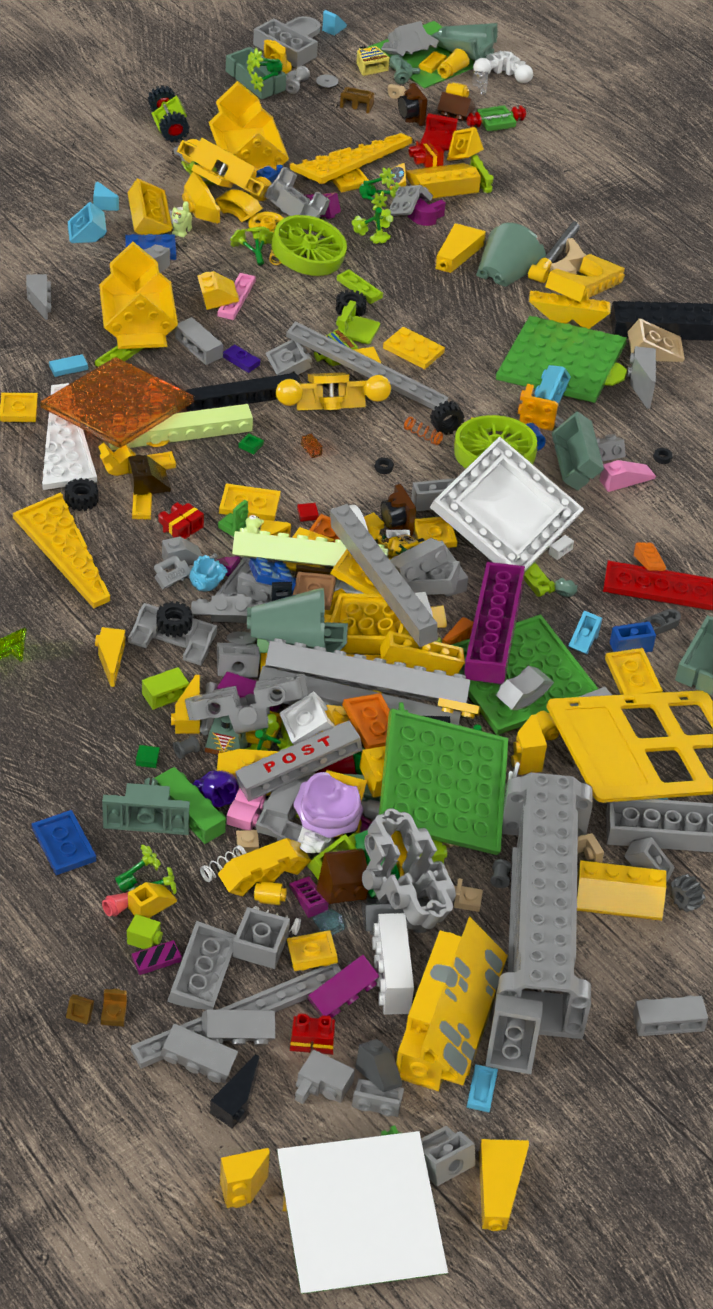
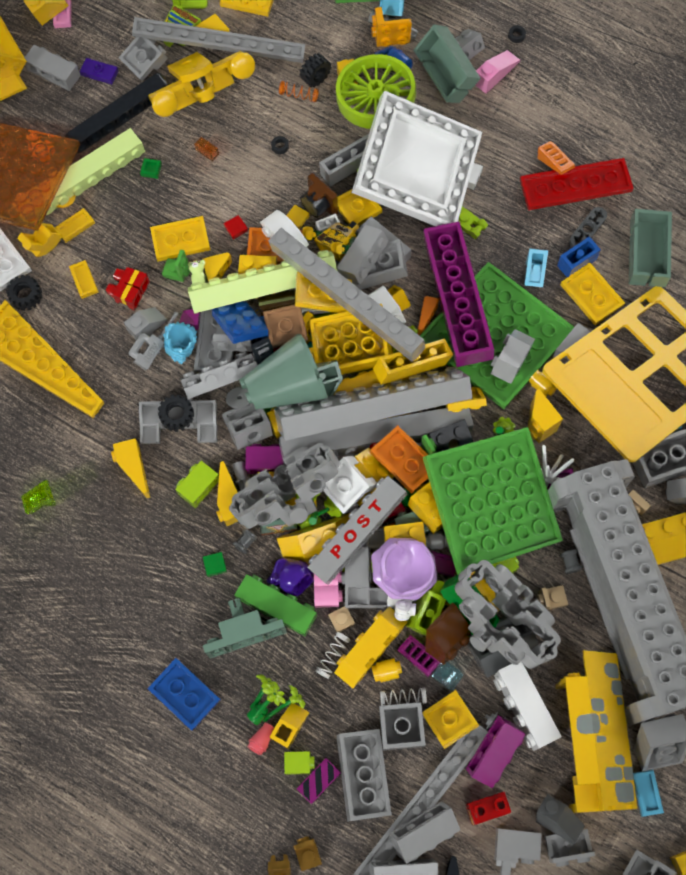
camera: 15 degrees left, 25 degrees up
(147, 476) = (76, 247): dark brown slope -> none
(565, 588) = (497, 222): sand green plate -> none

